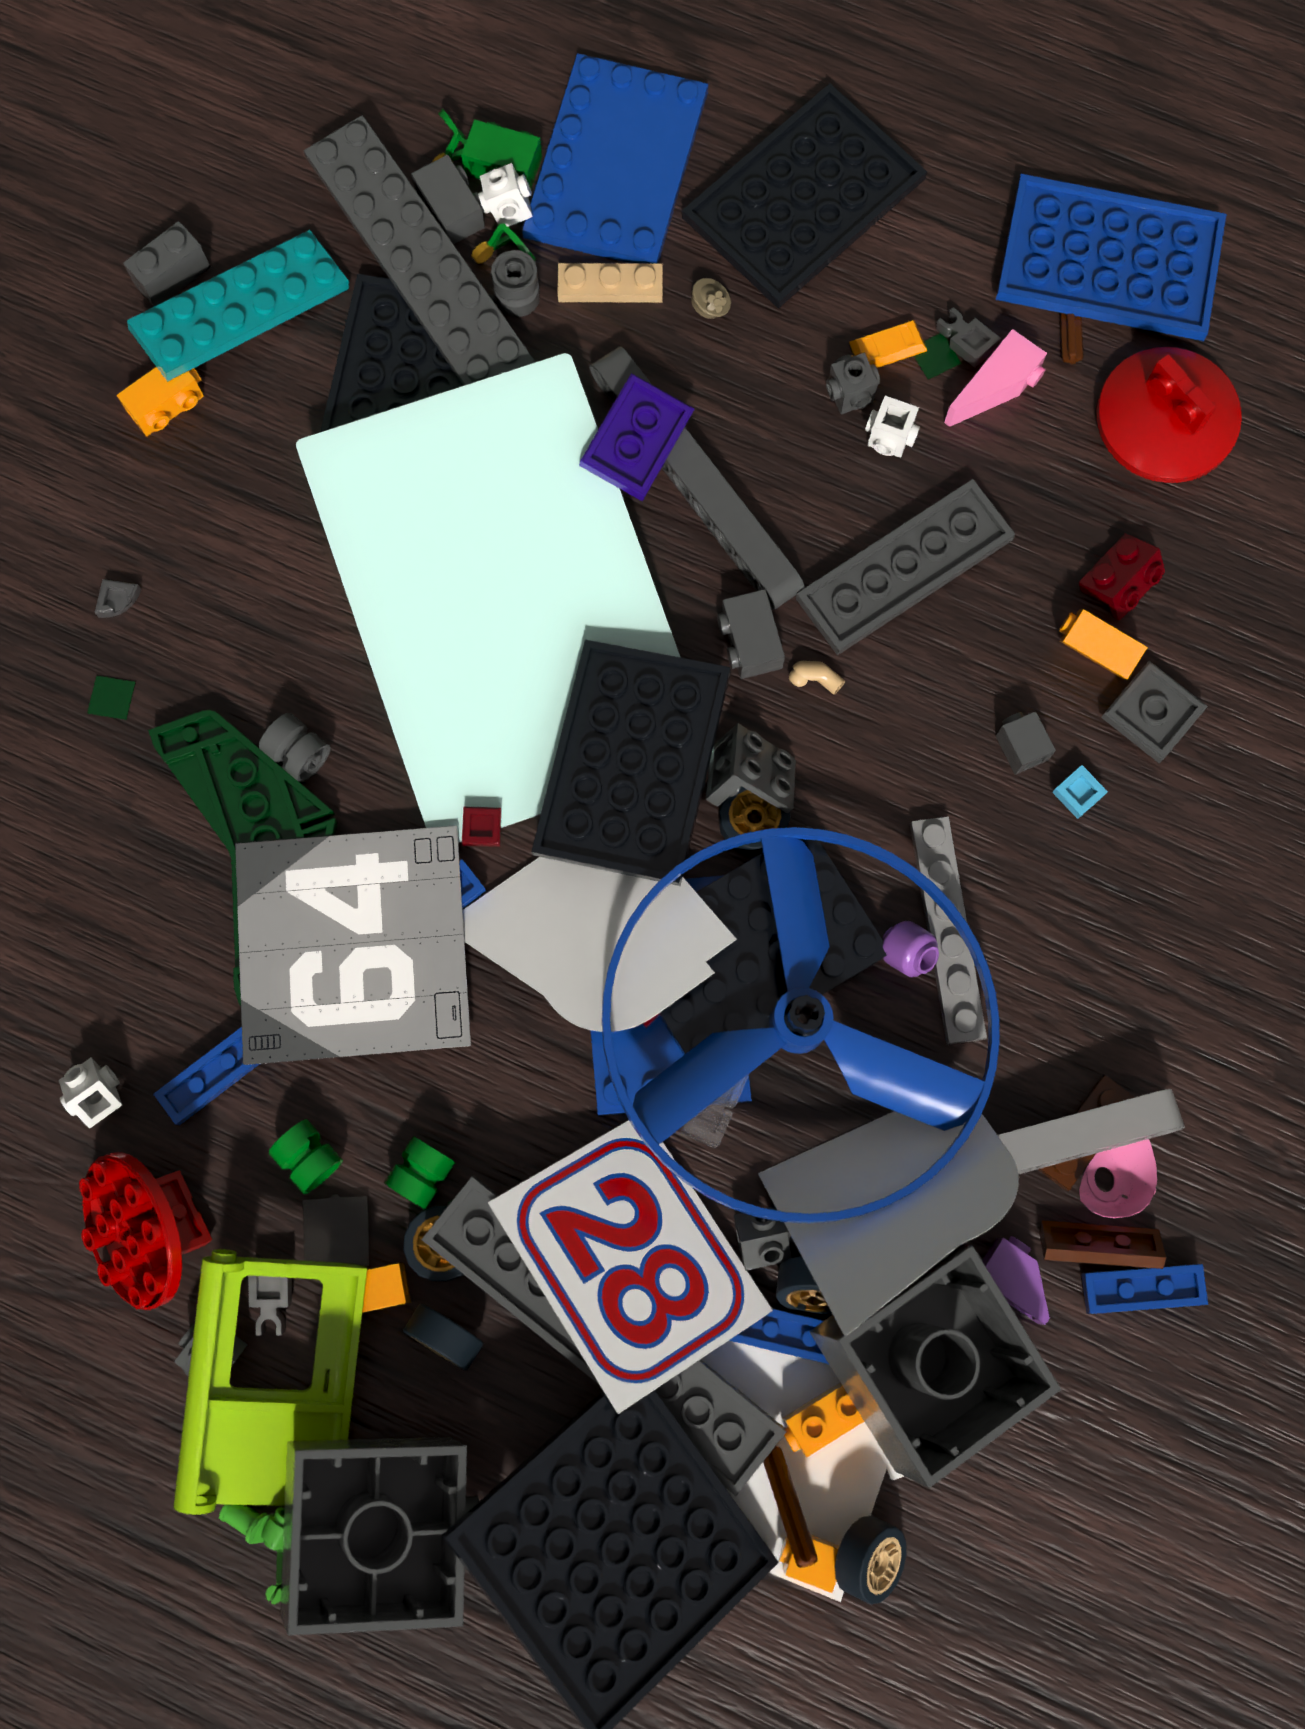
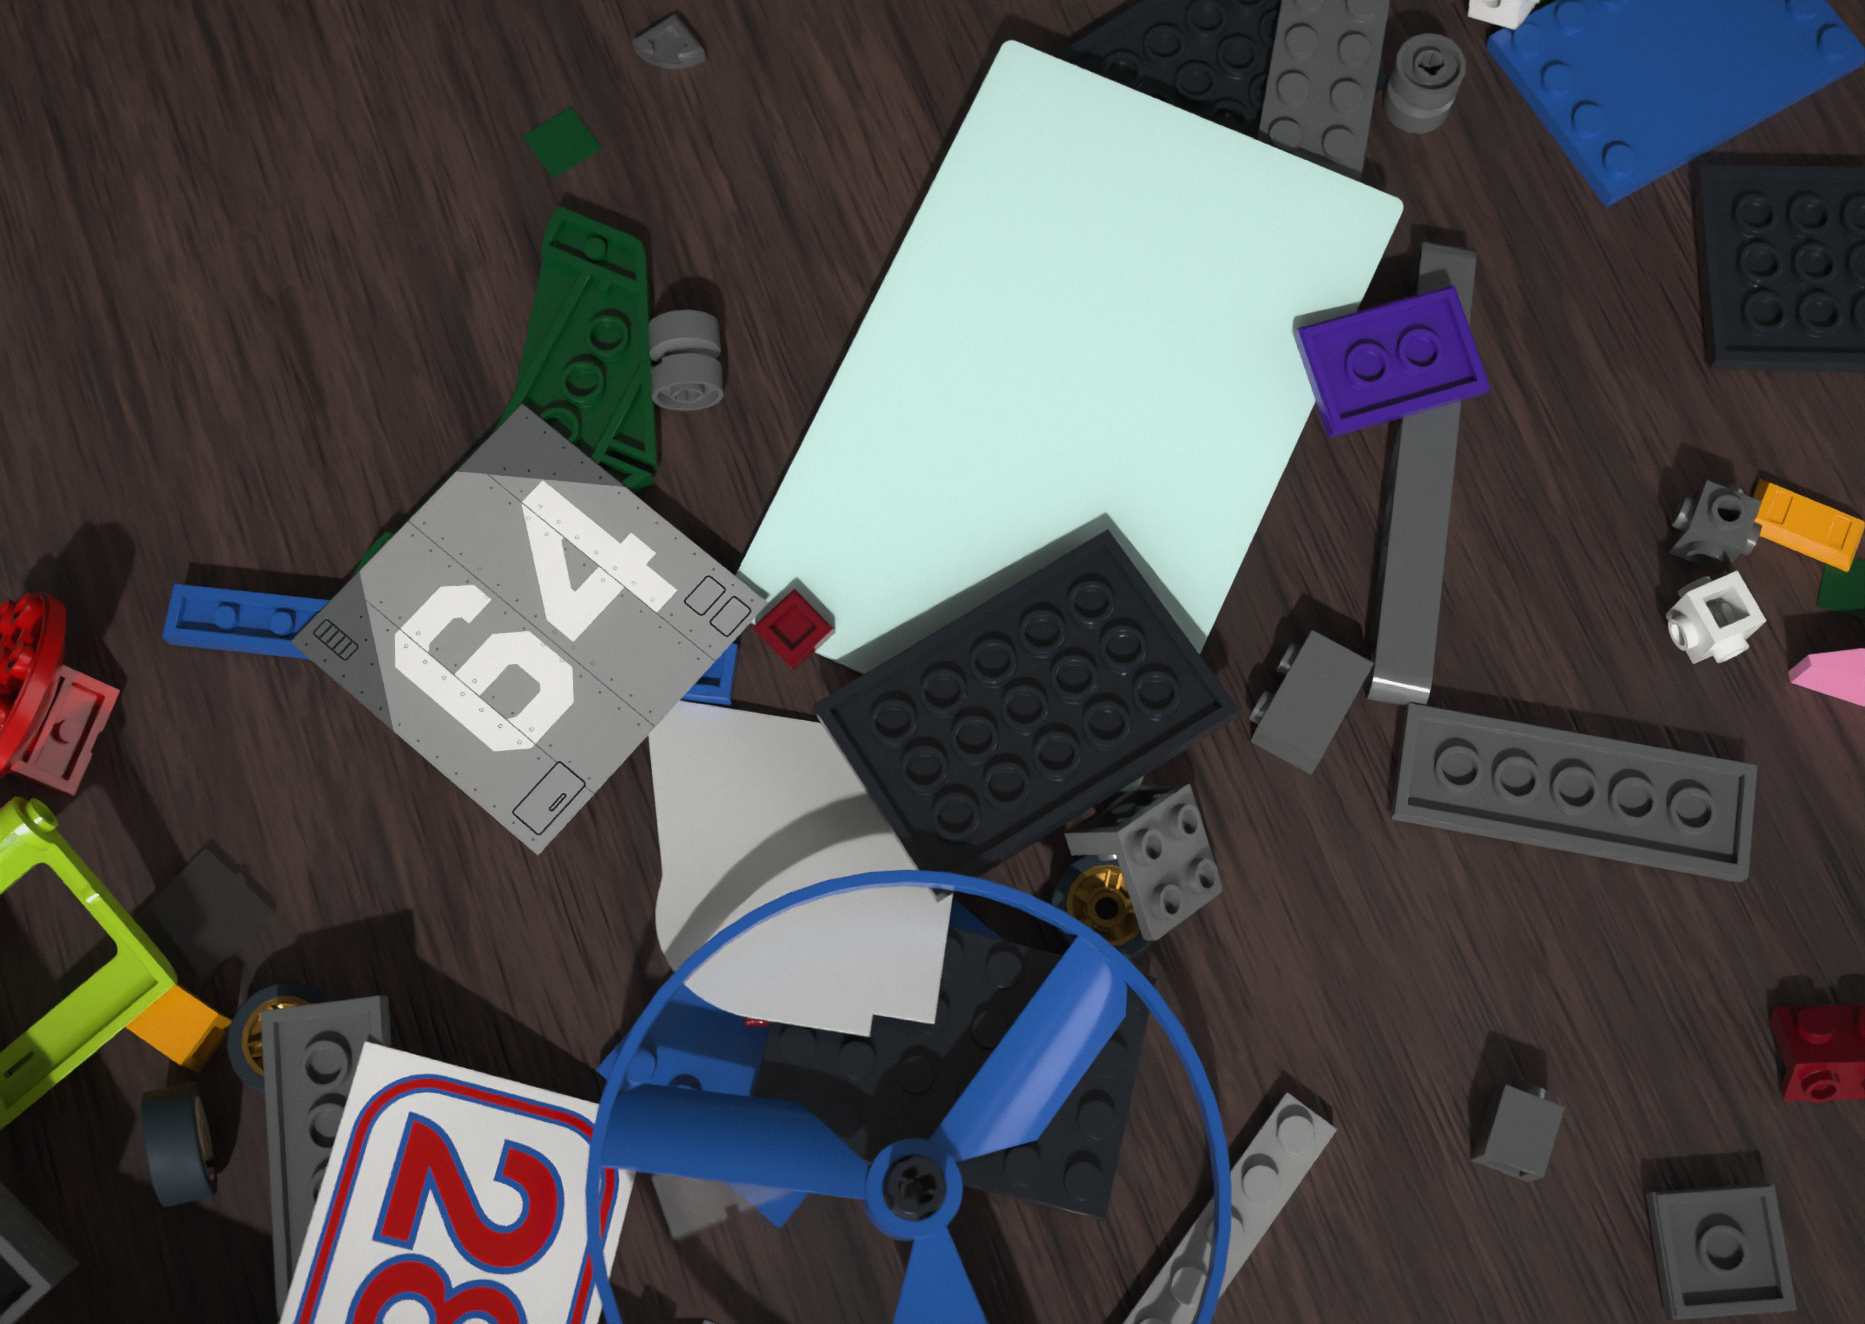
camera: 45 degrees right, 5 degrees down
(90, 1092) = (115, 519): white brick -> none
(270, 1295) = (62, 920): flat silver plate -> none
(305, 1156) = (250, 802): green wheel -> none
(419, 1172) = (335, 941): green wheel -> none
(486, 248) = (1428, 21): green piece -> none
(610, 282) = (1537, 175): tan plate -> none
(710, 298) = (1636, 288): dark tan hat -> none
(818, 672) = (1346, 813): tan arm -> none
(910, 949) = (1134, 1238): medium lavender head -> none
(1079, 792) = (1529, 1257): medium azure plate -> none
(1101, 643) = (1730, 1105): light orange brick -> none

